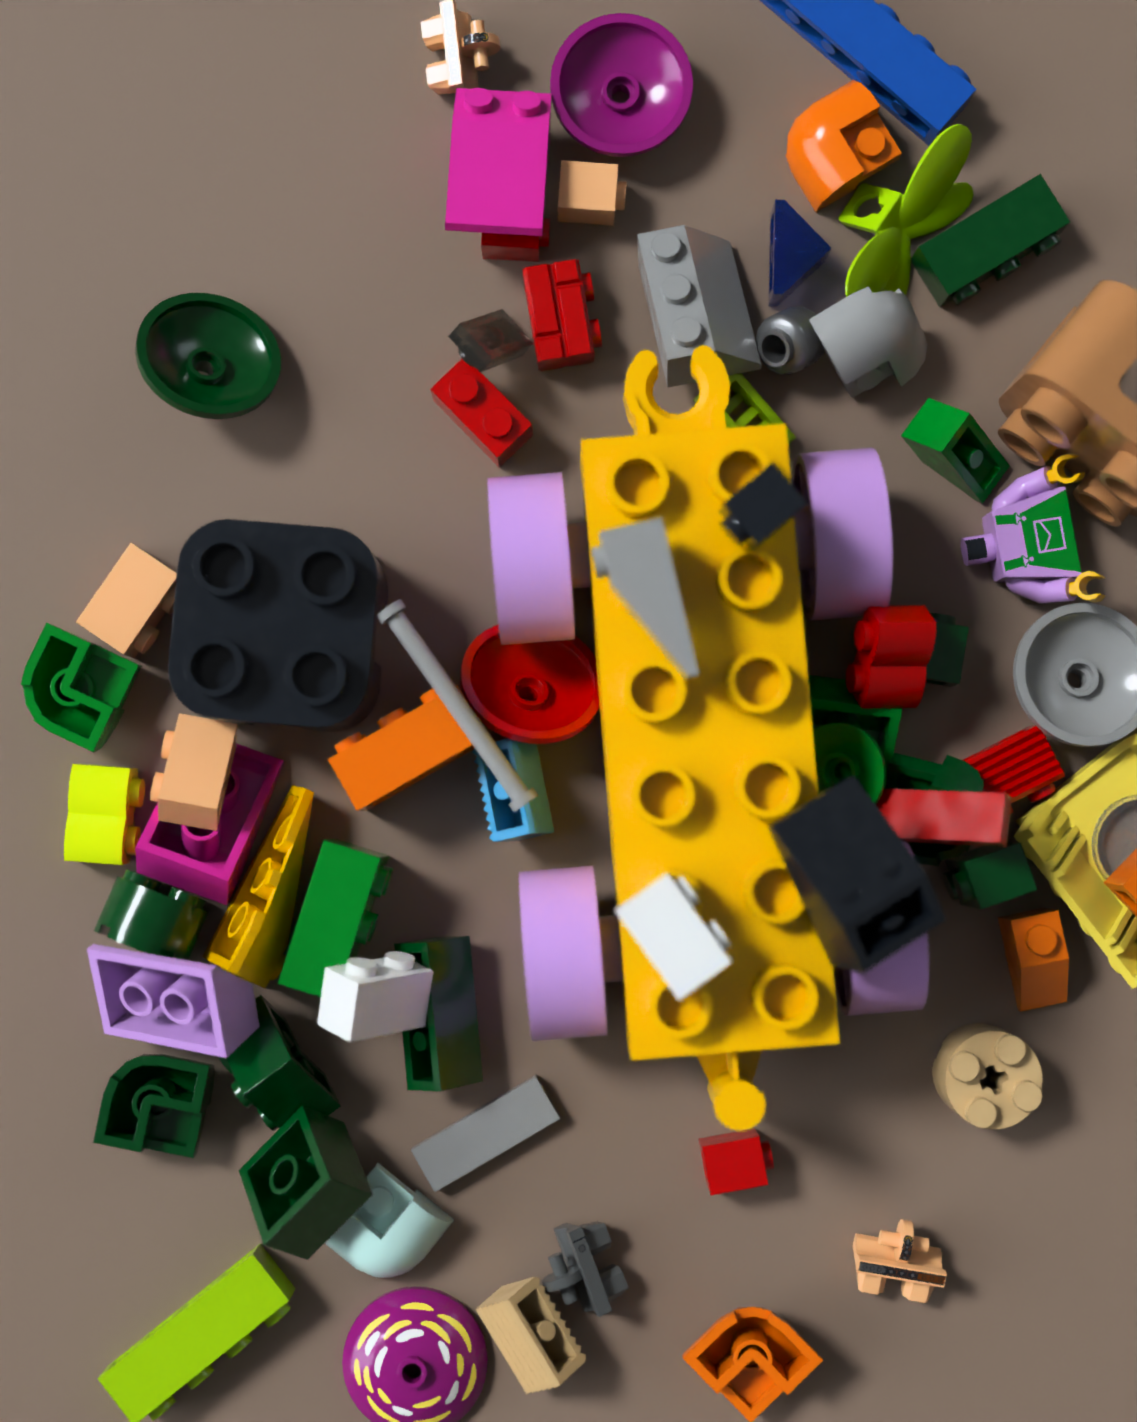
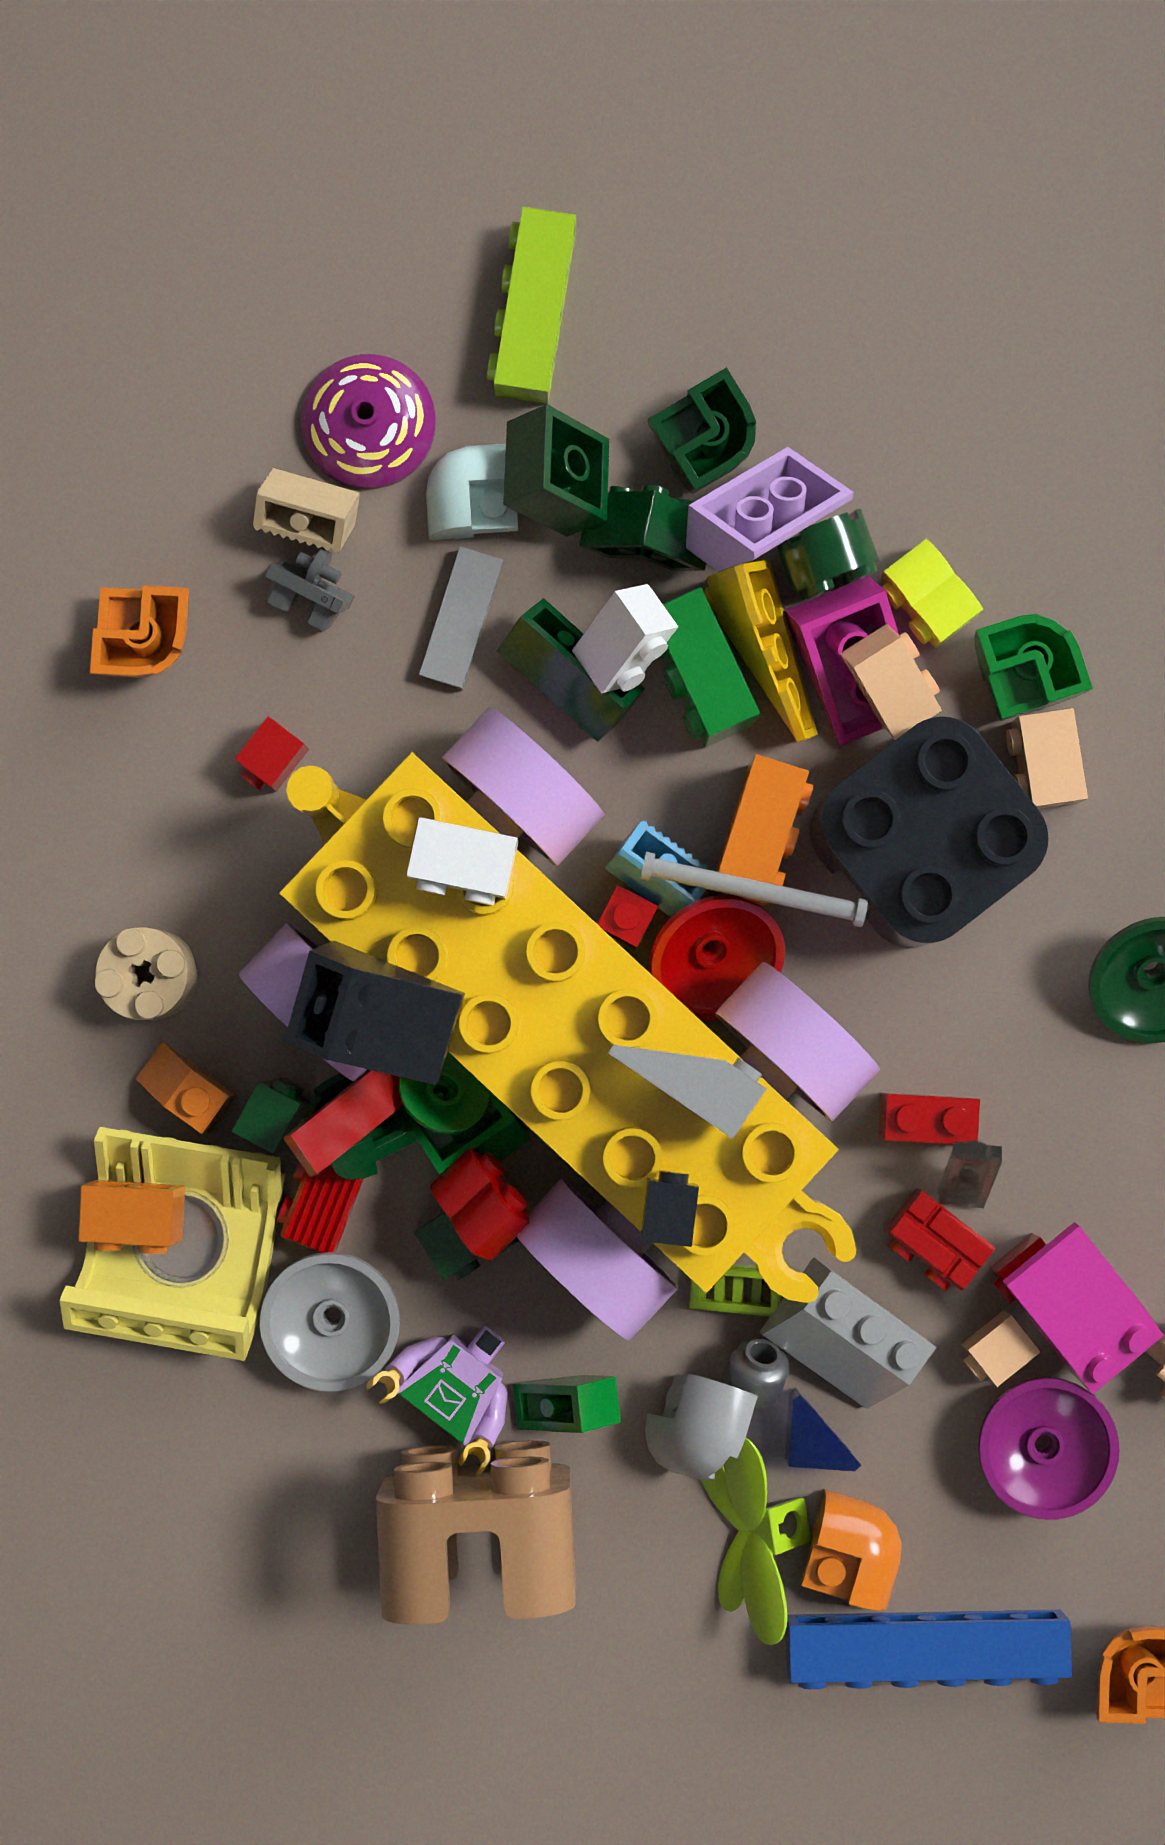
camera: 140 degrees right, 0 degrees up
(572, 777) = (627, 917): none -> red brick
(898, 1257) = (95, 793): light nougat hips -> none
(991, 242) = (677, 1580): dark green brick -> none

